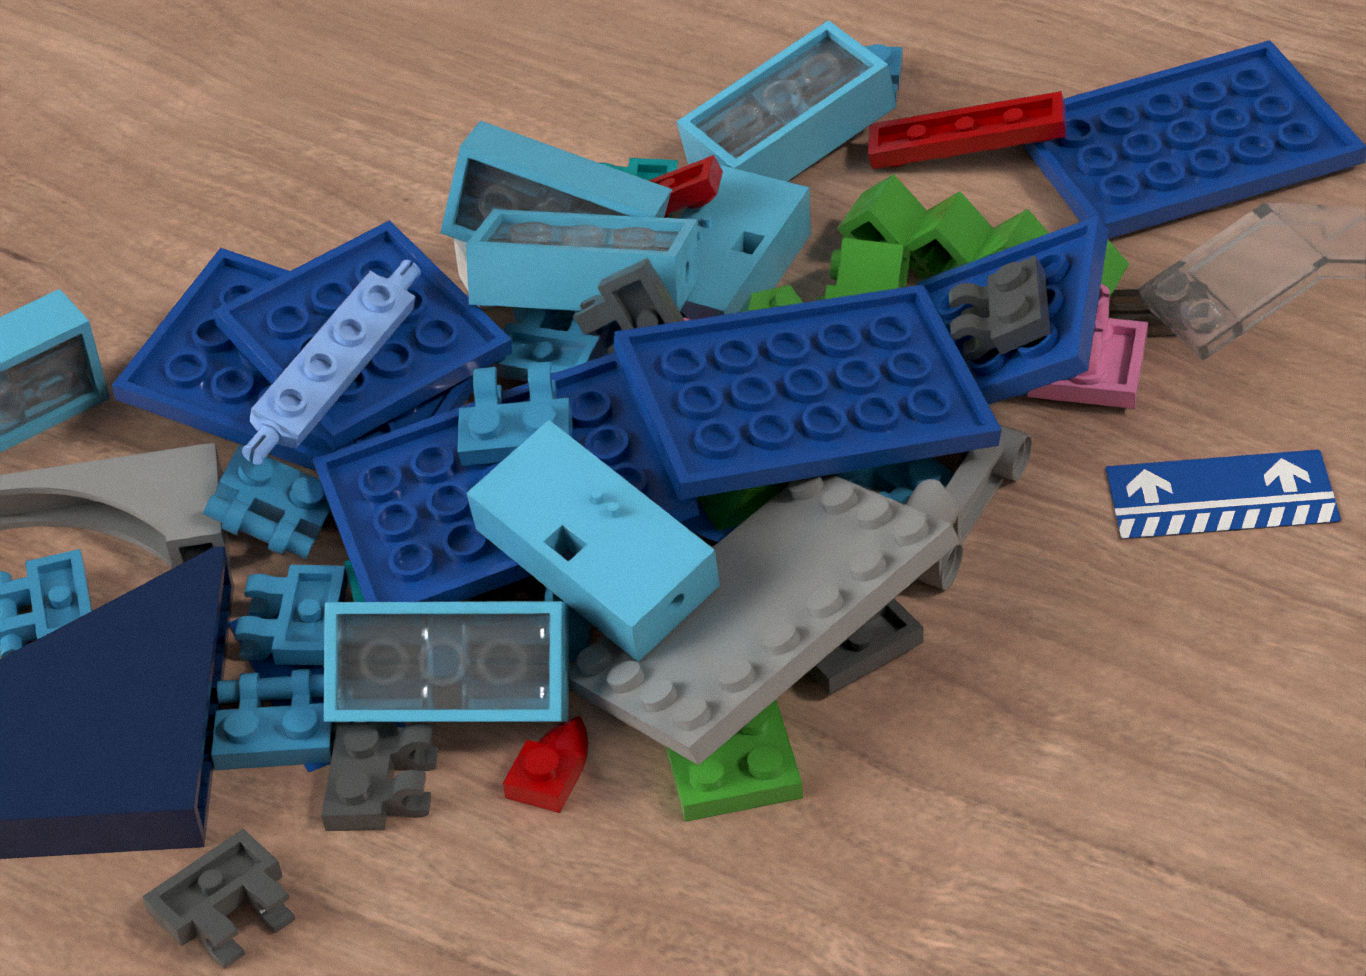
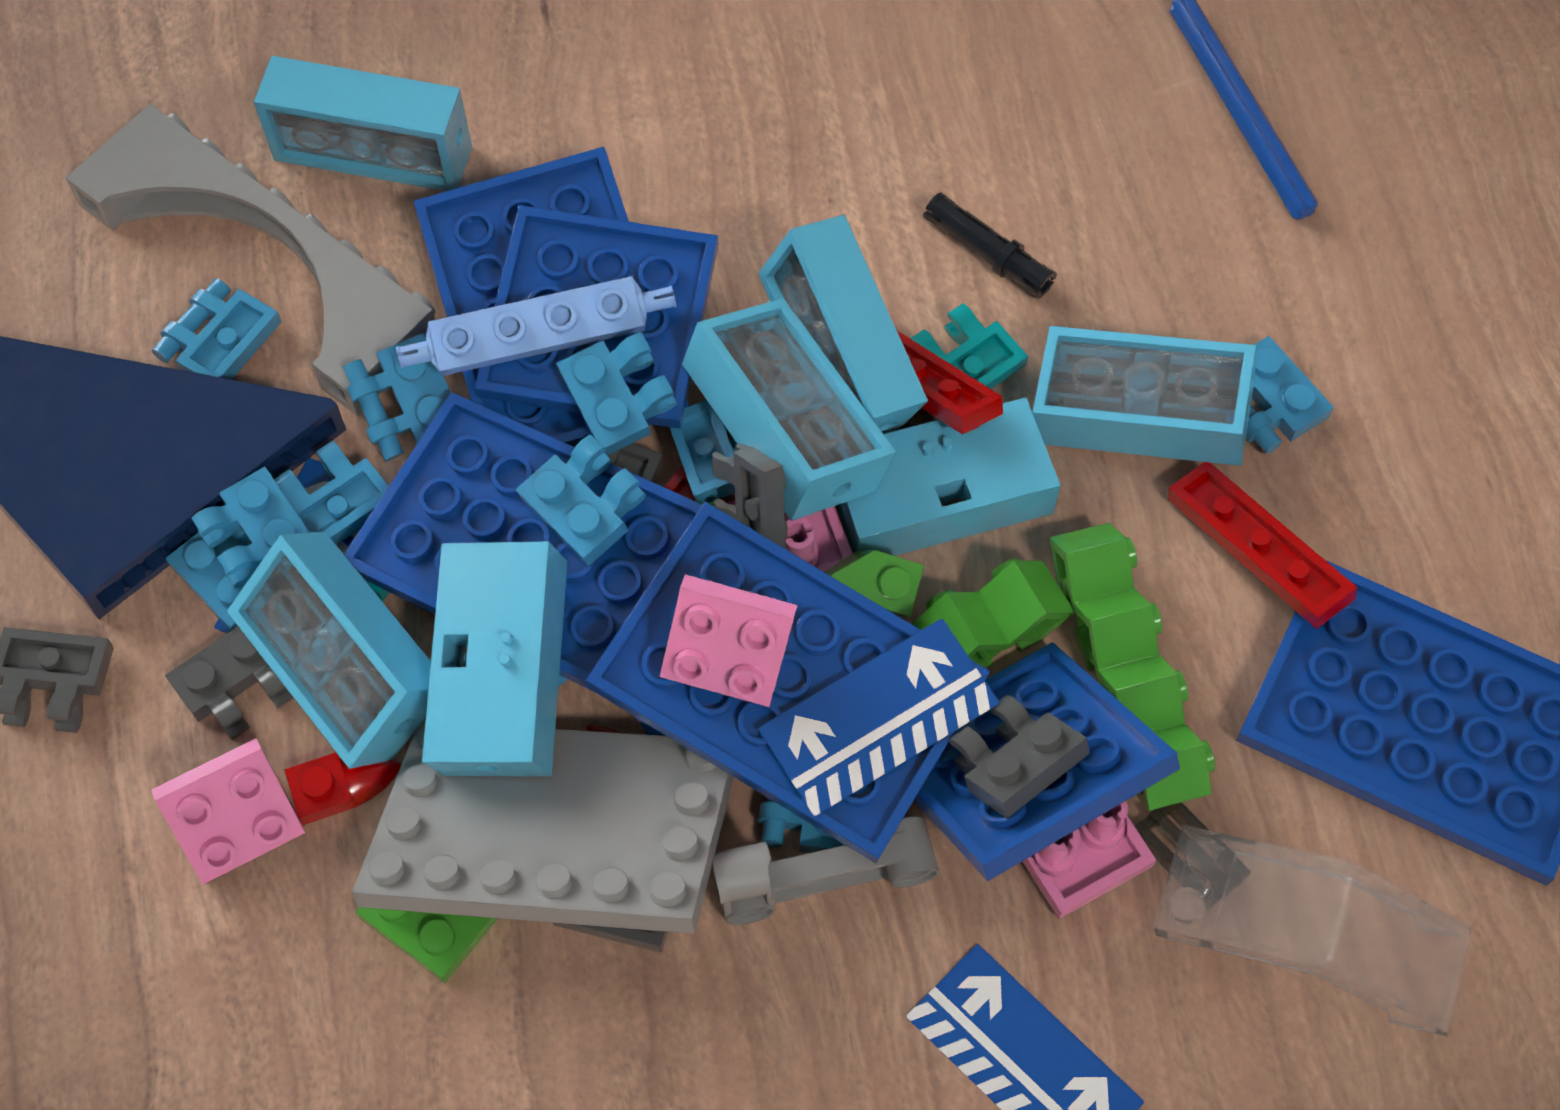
camera: 45 degrees right, 20 degrees up
(268, 652) = (258, 510): none -> dark azure plate
(441, 360) = (604, 398): none -> dark azure plate
(504, 824) = (228, 811): none -> bright pink plate
(579, 129) = (1005, 256): none -> black pin
(753, 364) = (727, 640): none -> bright pink plate
(891, 358) = (878, 716): none -> blue sticker

